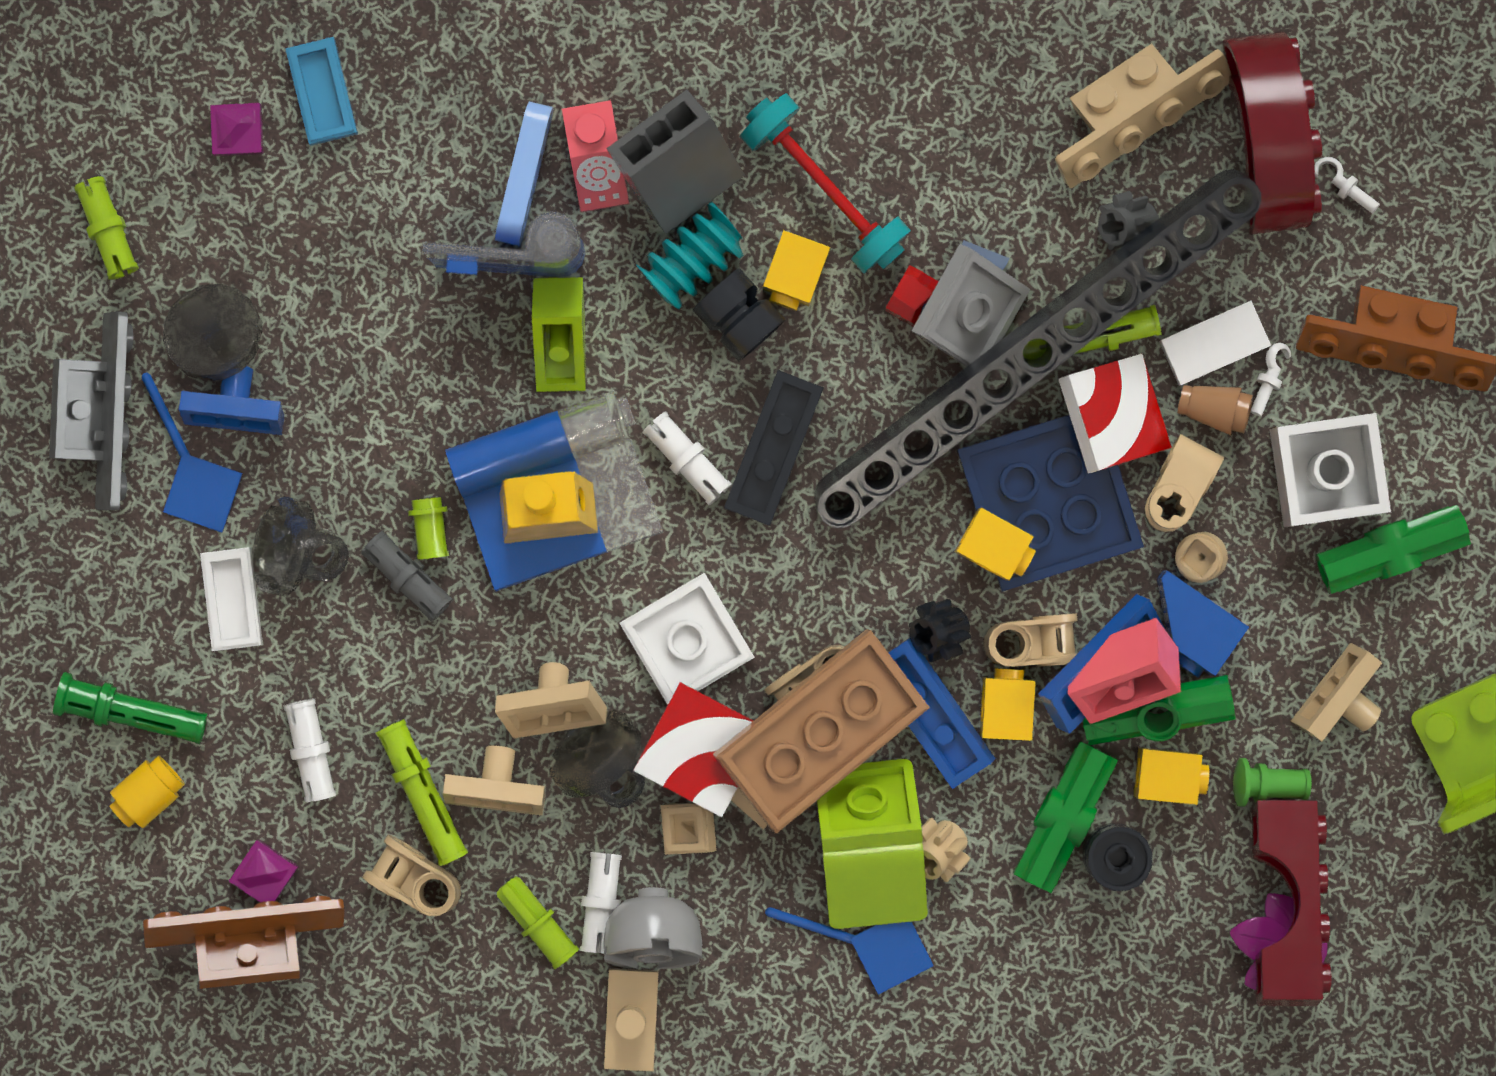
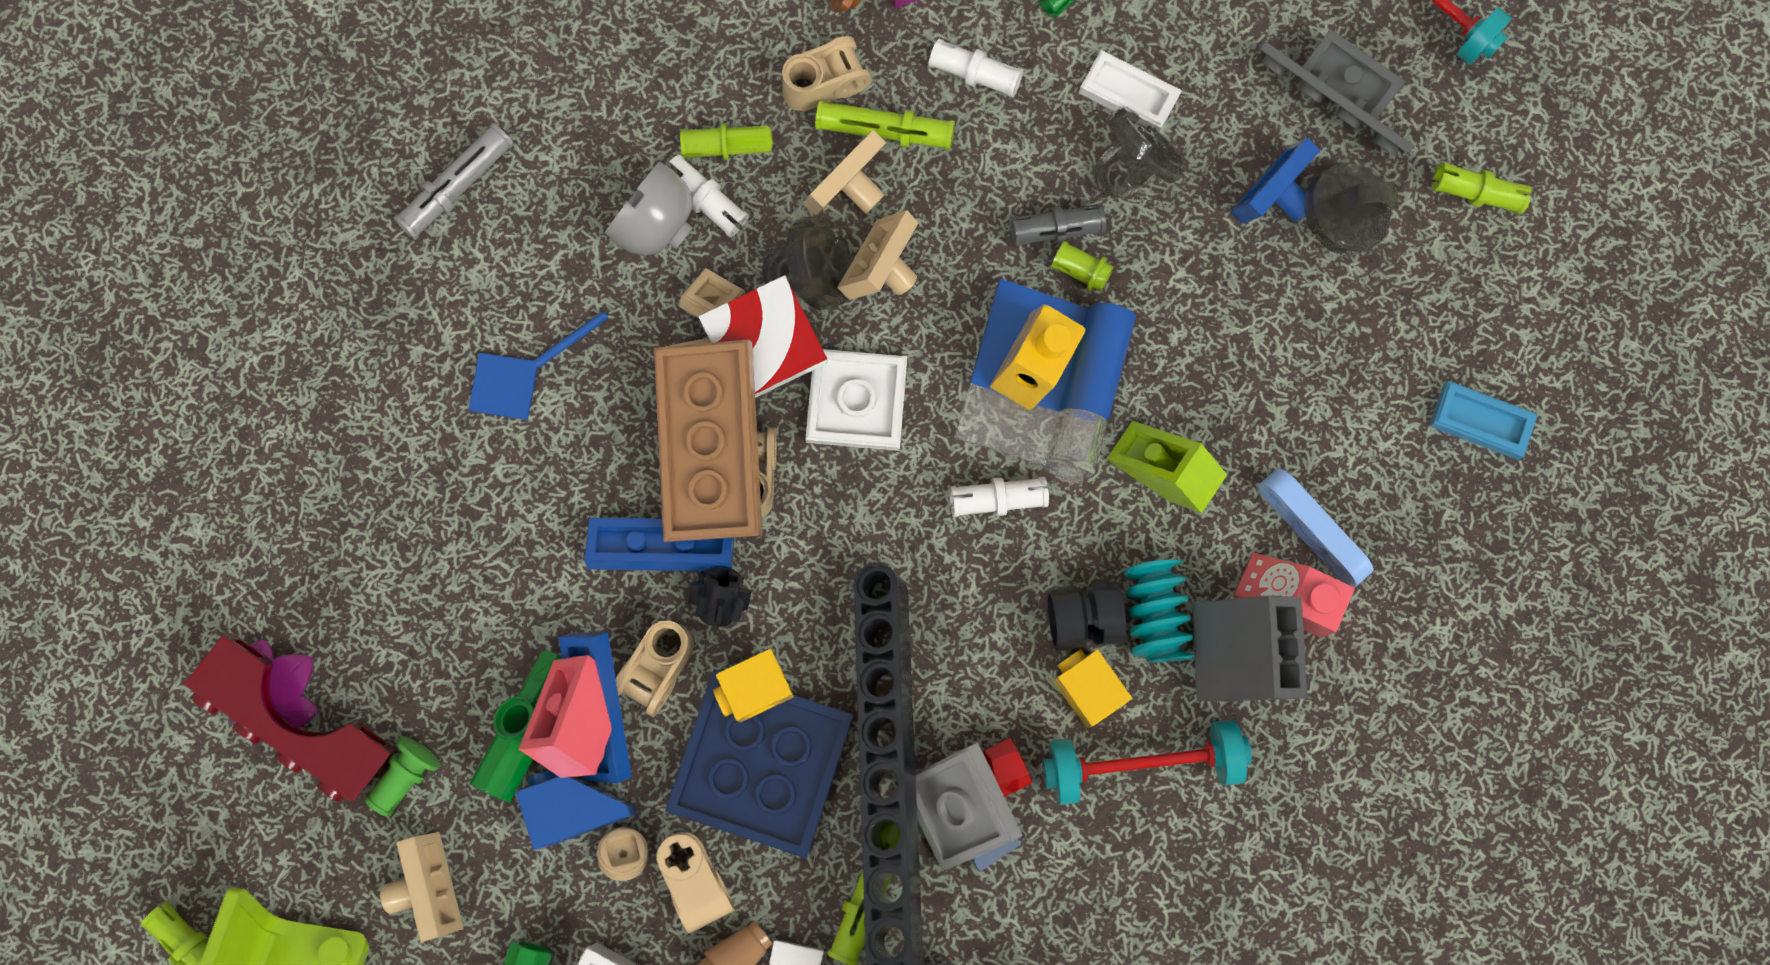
camera: 125 degrees right, 10 degrees down
(200, 489) = (1229, 126): blue piece -> none
(236, 129) = (1494, 336): magenta tile -> none
(550, 251) = (1262, 480): clear door -> none
(631, 1019) = (601, 159): tan tile -> none
(773, 447) = (959, 570): black plate -> none
(873, 847) = (593, 423): lime piece -> none
(943, 849) = (550, 472): tan gear -> none
(1007, 706) = (619, 607): yellow brick -> none
(1065, 817) = (500, 591): green piece -> none
(1115, 413) = (789, 866): tile -> none
(1117, 857) = (435, 607): black wheel -> none
(1170, 776) = (467, 698): yellow brick -> none

